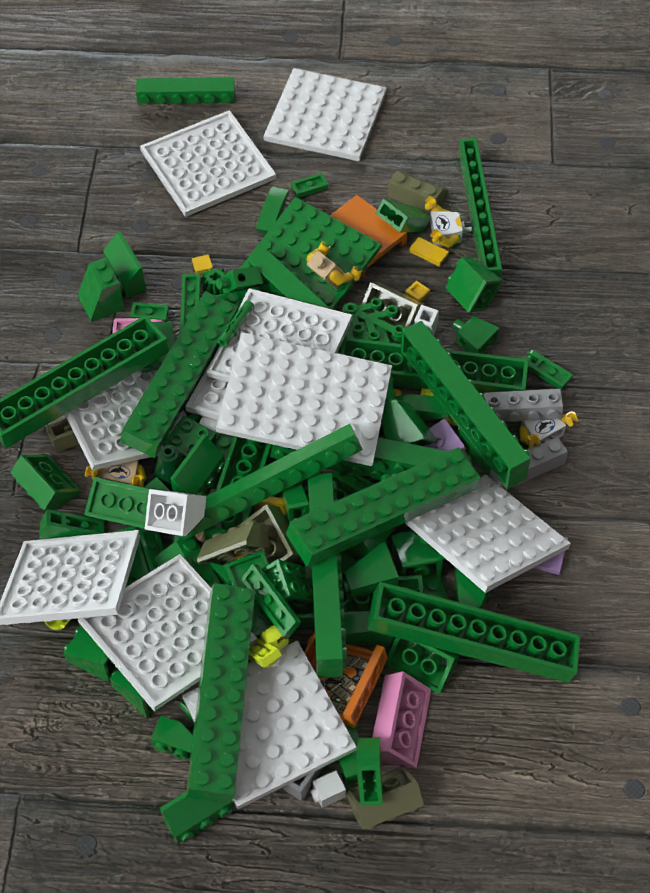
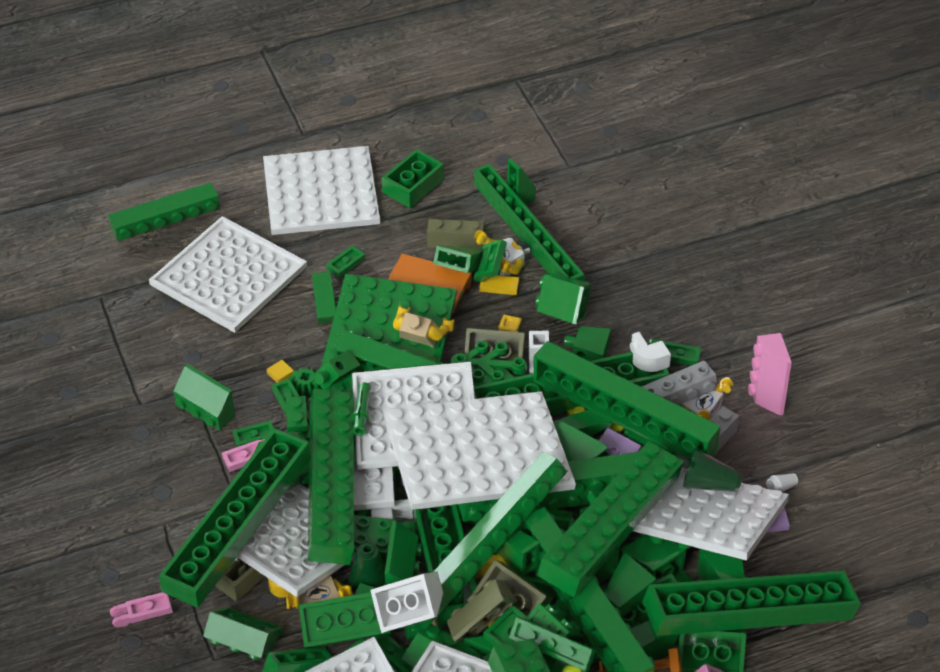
camera: 25 degrees left, 10 degrees down
(100, 291) = (195, 429): green slope -> none
(185, 307) = (296, 414): none -> green plate
(406, 129) = (413, 178): none -> green brick
(427, 227) = (491, 260): none -> green plate
(493, 167) = (520, 182): none -> green slope
(504, 497) = (710, 473): none -> dark green cone
(513, 367) = (649, 357): none -> white brick
(573, 528) = (782, 482): none -> white cone
(613, 421) = (770, 373): none -> bright pink slope

